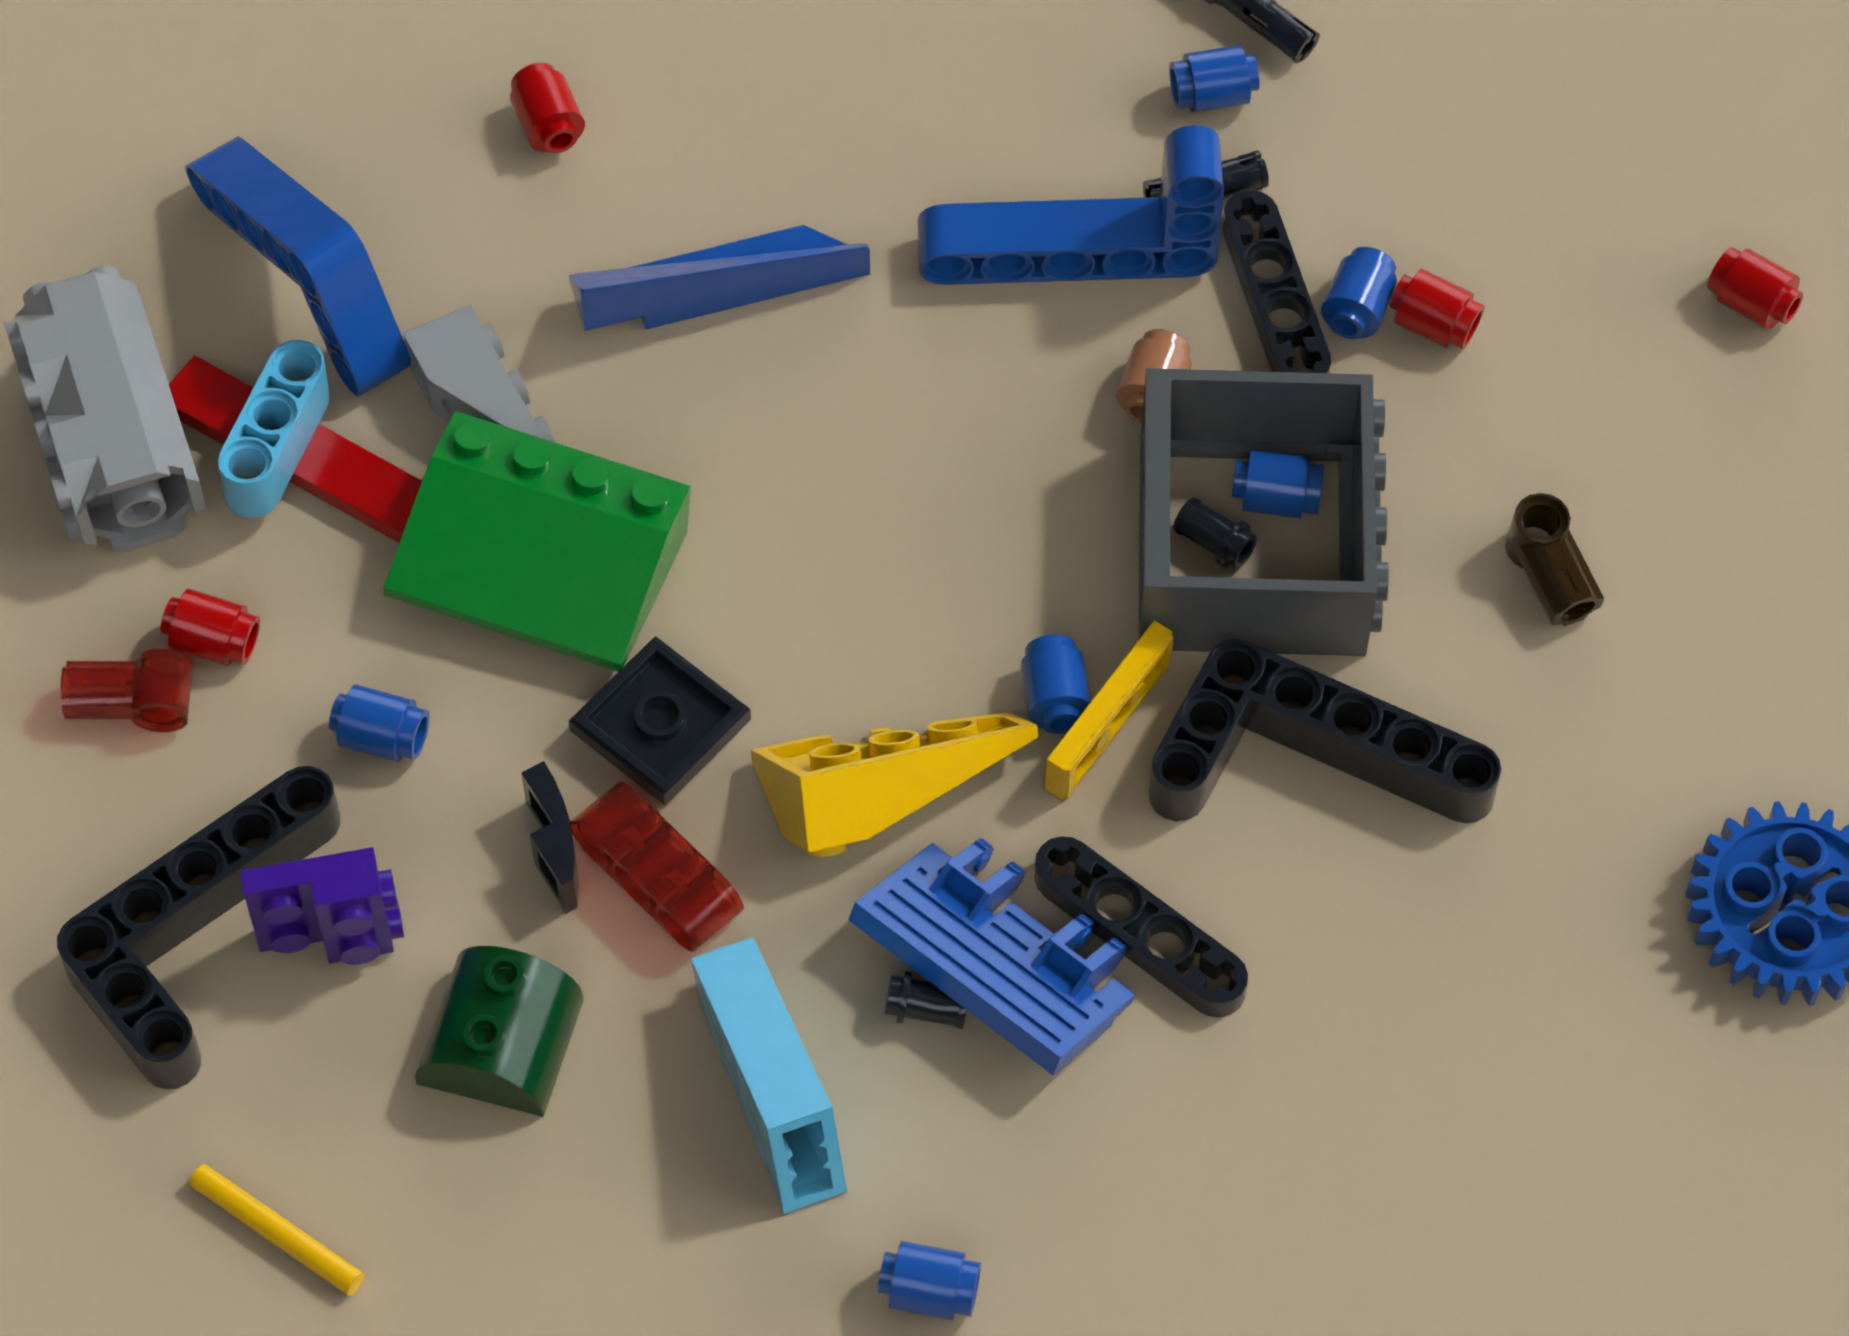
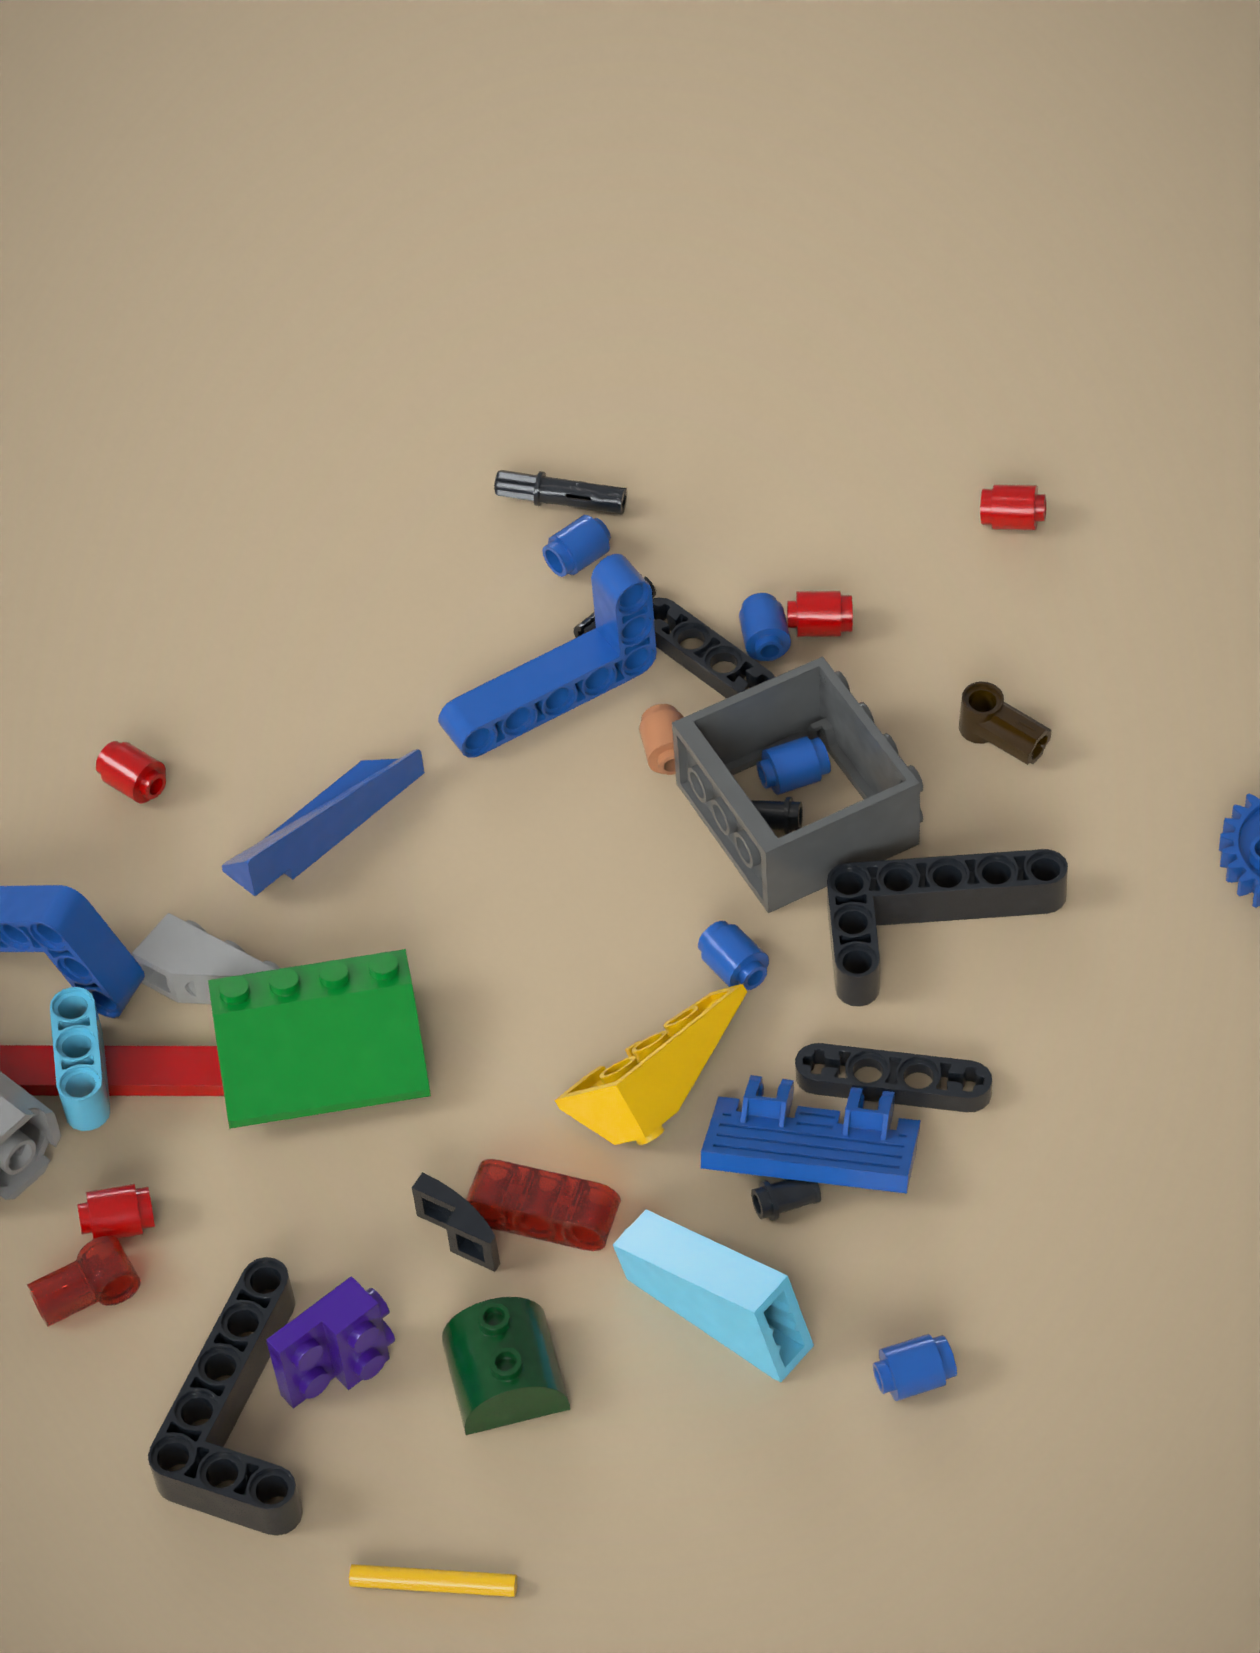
camera: 25 degrees left, 10 degrees down
(379, 723) = (282, 1212): blue brick -> none
(660, 720) = (478, 1112): black plate -> none
(1109, 711) = (781, 955): yellow tile -> none

